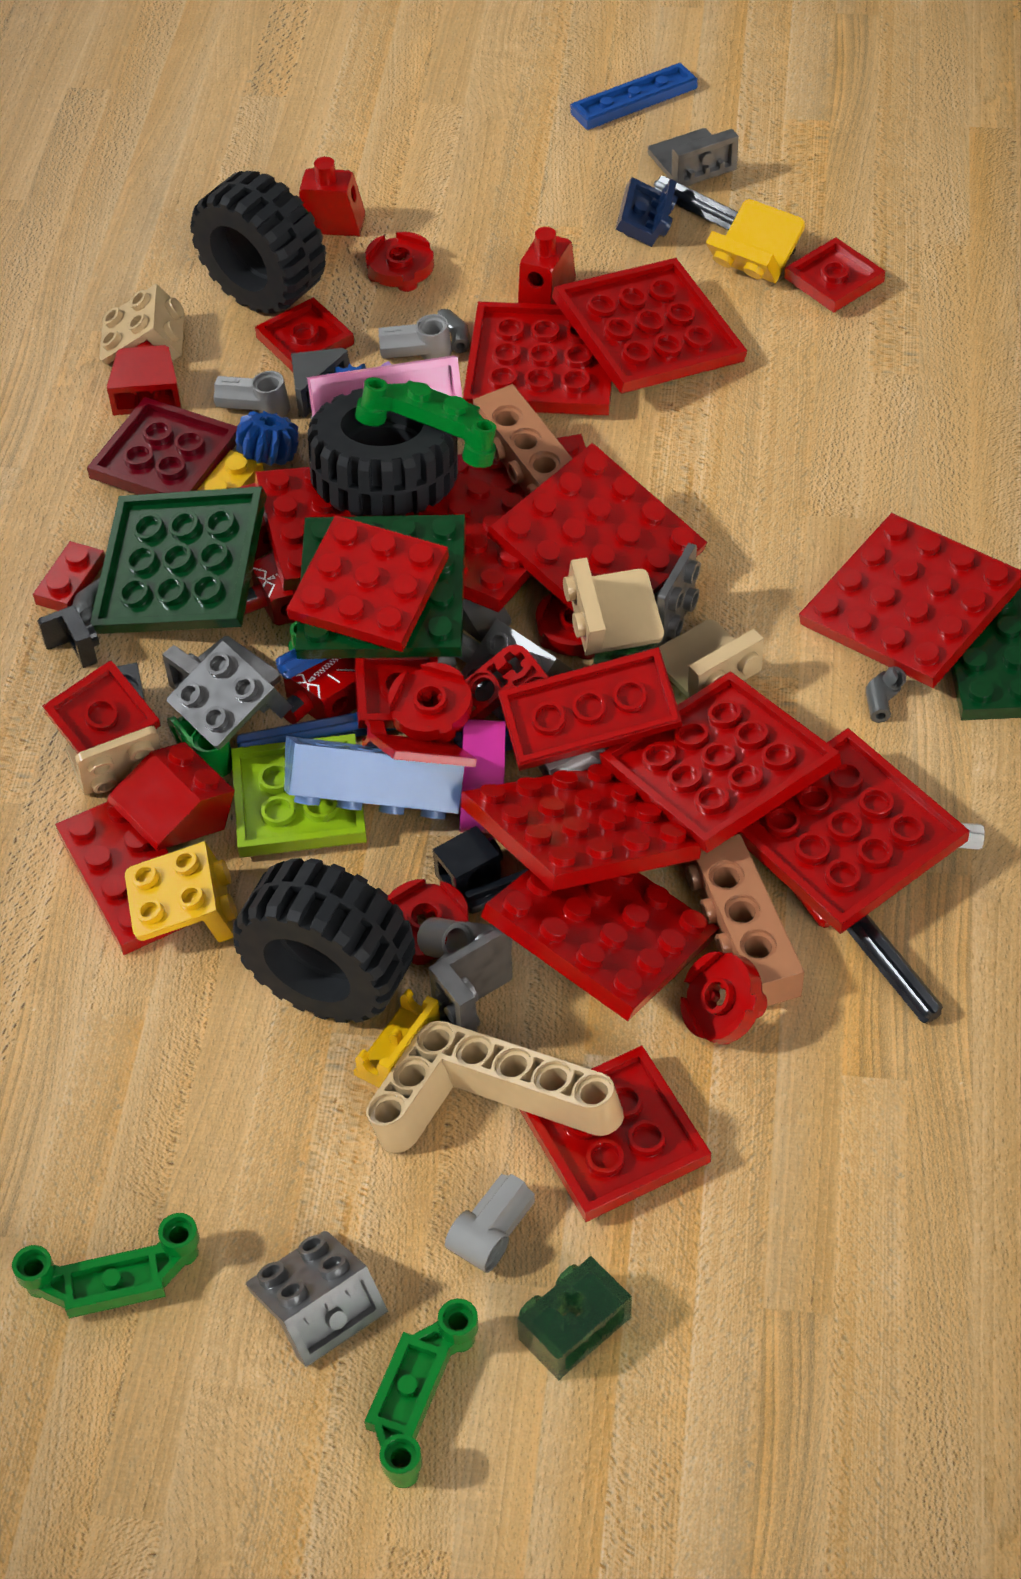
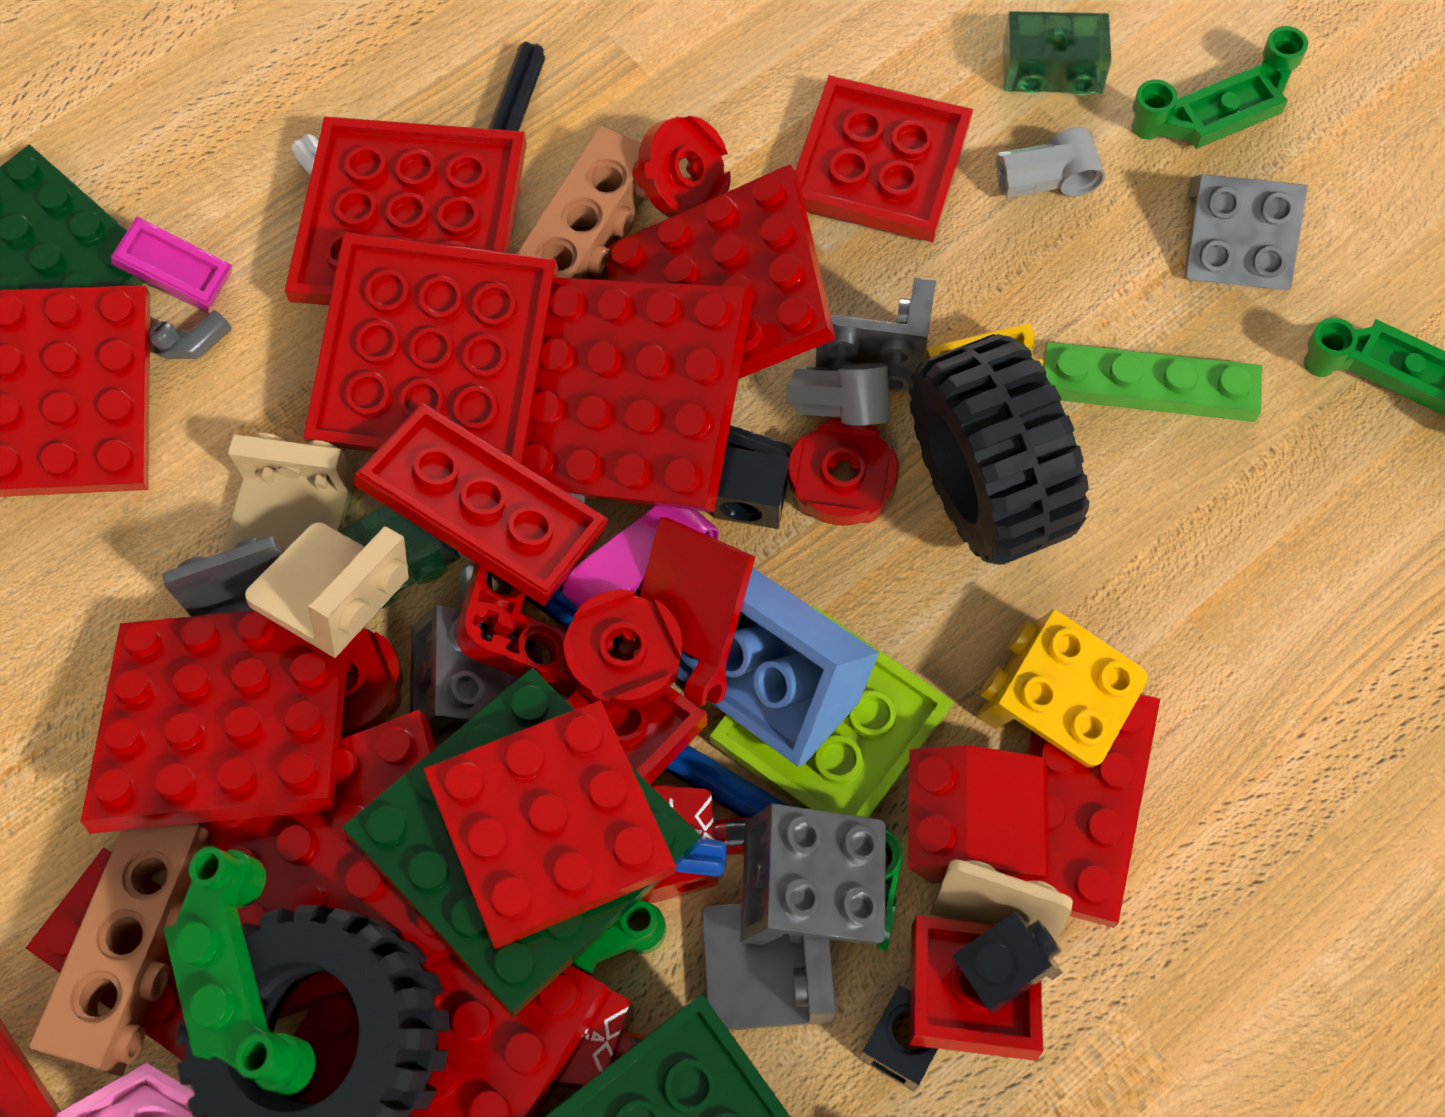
camera: 135 degrees left, 15 degrees up
(88, 721) = (1009, 960): none -> black bracket
(285, 1136) = (1154, 381): none -> bright green plate
(457, 1057) = (946, 250): tan beam -> none
(944, 709) = (171, 264): none -> dark pink tile

